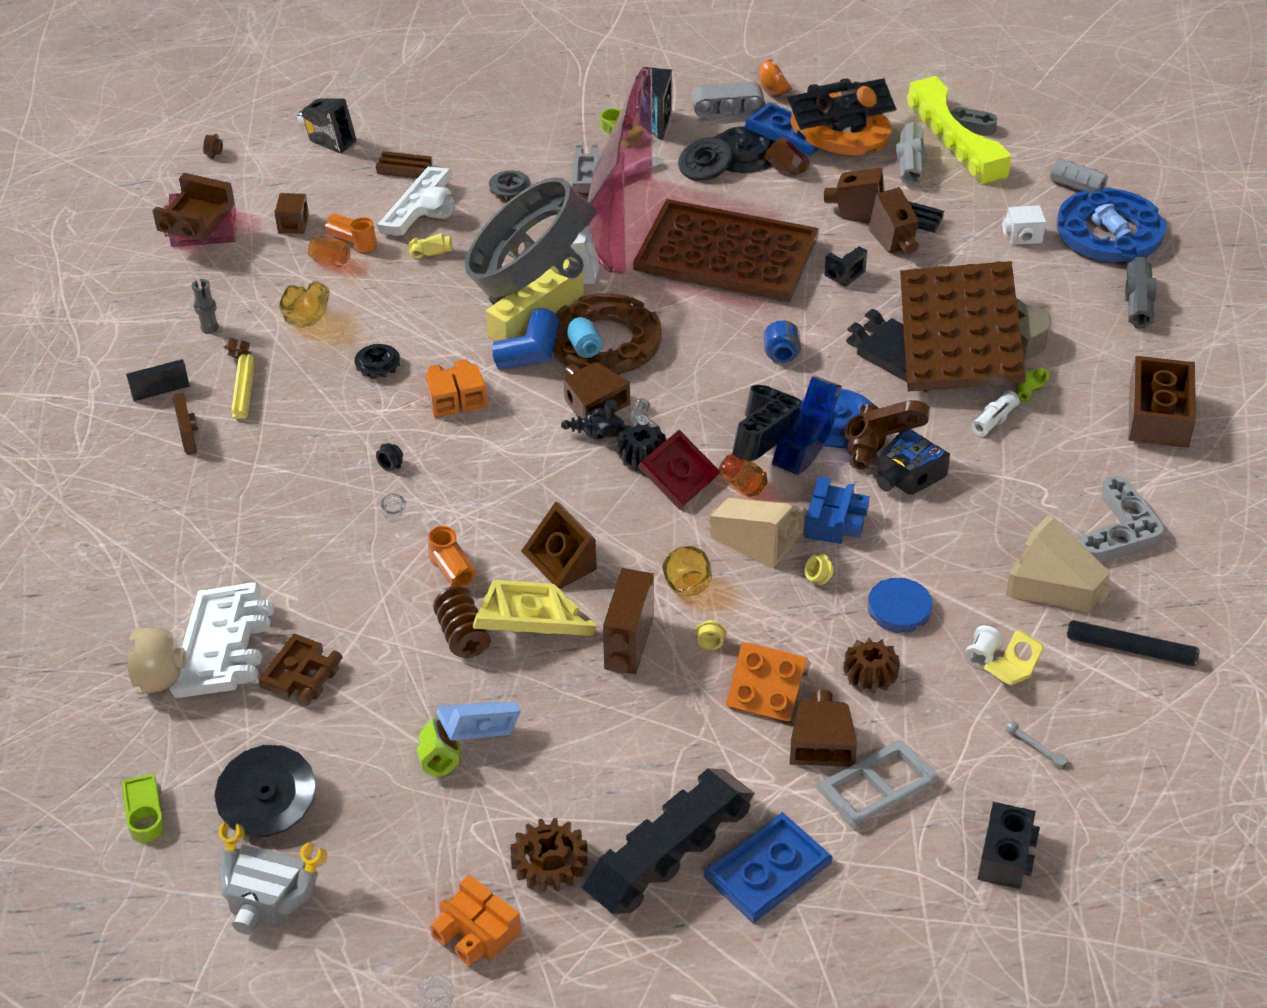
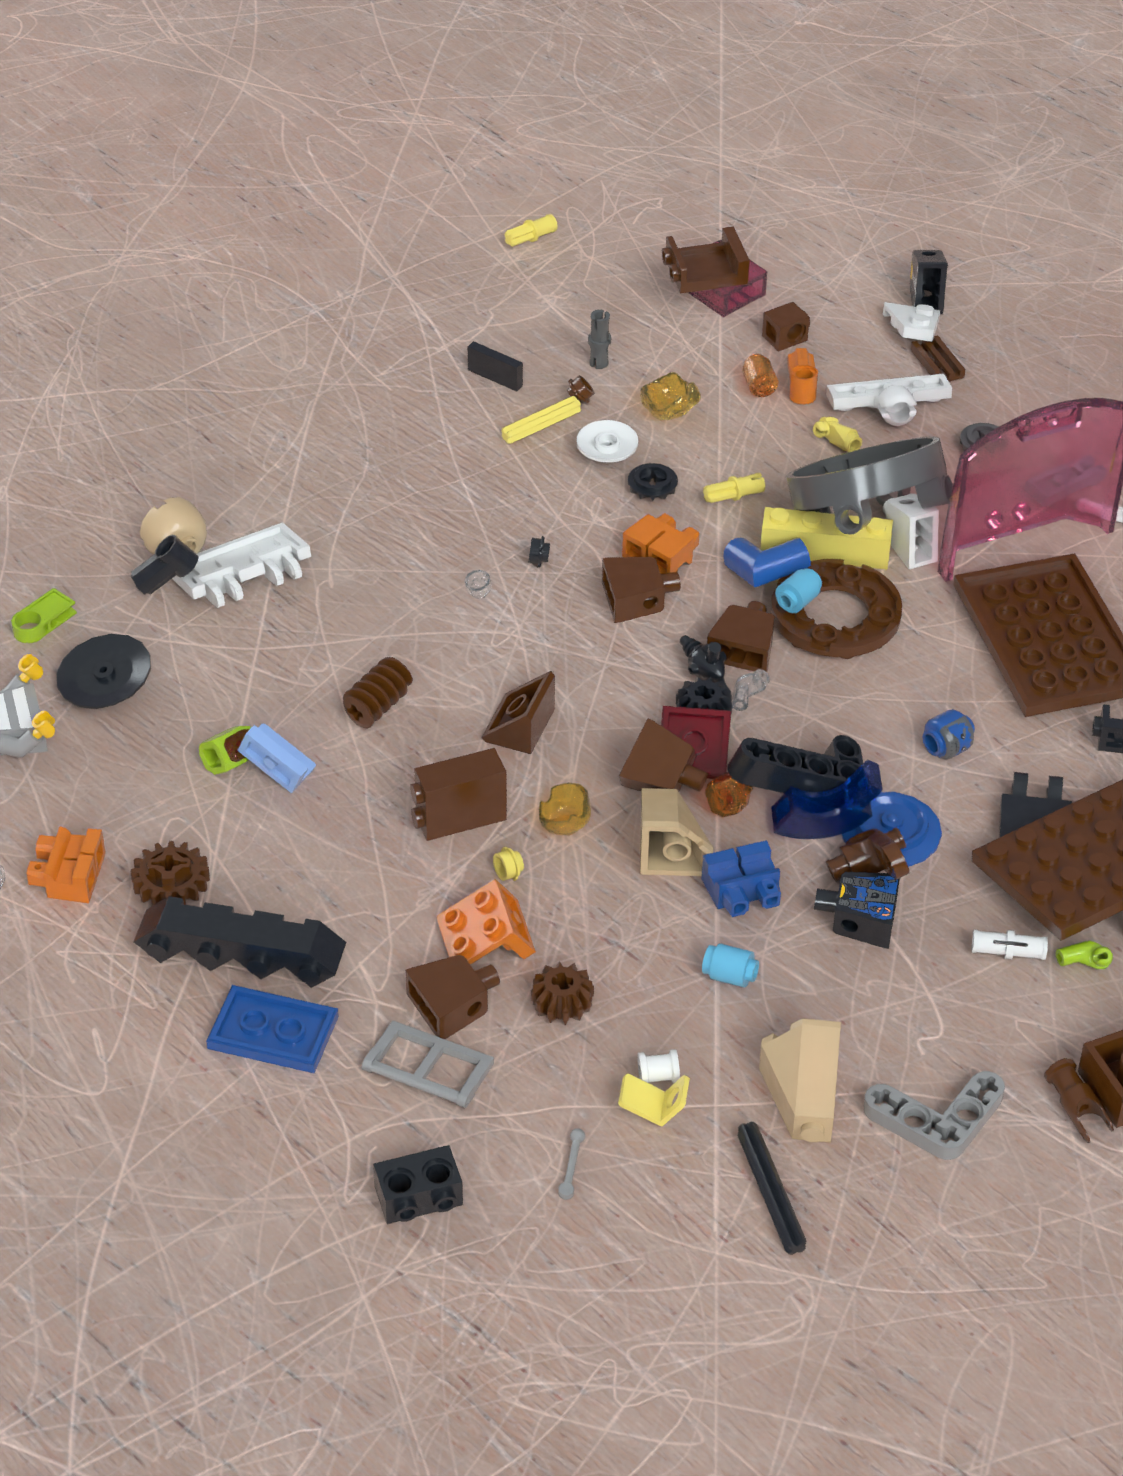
camera: 55 degrees right, 0 degrees up
(22, 286) = (531, 230): none -> light yellow axle
(184, 685) = (170, 559): none -> black piece
(186, 422) = (459, 409): reddish brown plate -> none
(212, 145) = (827, 231): reddish brown plate -> none
(293, 663) = (248, 619): reddish brown plate -> none
(312, 360) = (607, 441): none -> white dish
(356, 152) = (912, 321): none -> white wing
(432, 322) = (734, 488): none -> light yellow axle
(449, 556) = (449, 648): orange piece -> none
(483, 423) = (636, 586): none -> reddish brown torso
(530, 608) = (423, 721): light yellow wing -> none
(689, 494) = (661, 762): none -> reddish brown torso
(819, 569) = (657, 903): light yellow plate -> none
(900, 604) = (667, 984): blue tile -> none
(912, 559) = (730, 965): none -> medium azure brick
(1157, 450) = (1075, 1095): none -> reddish brown piece

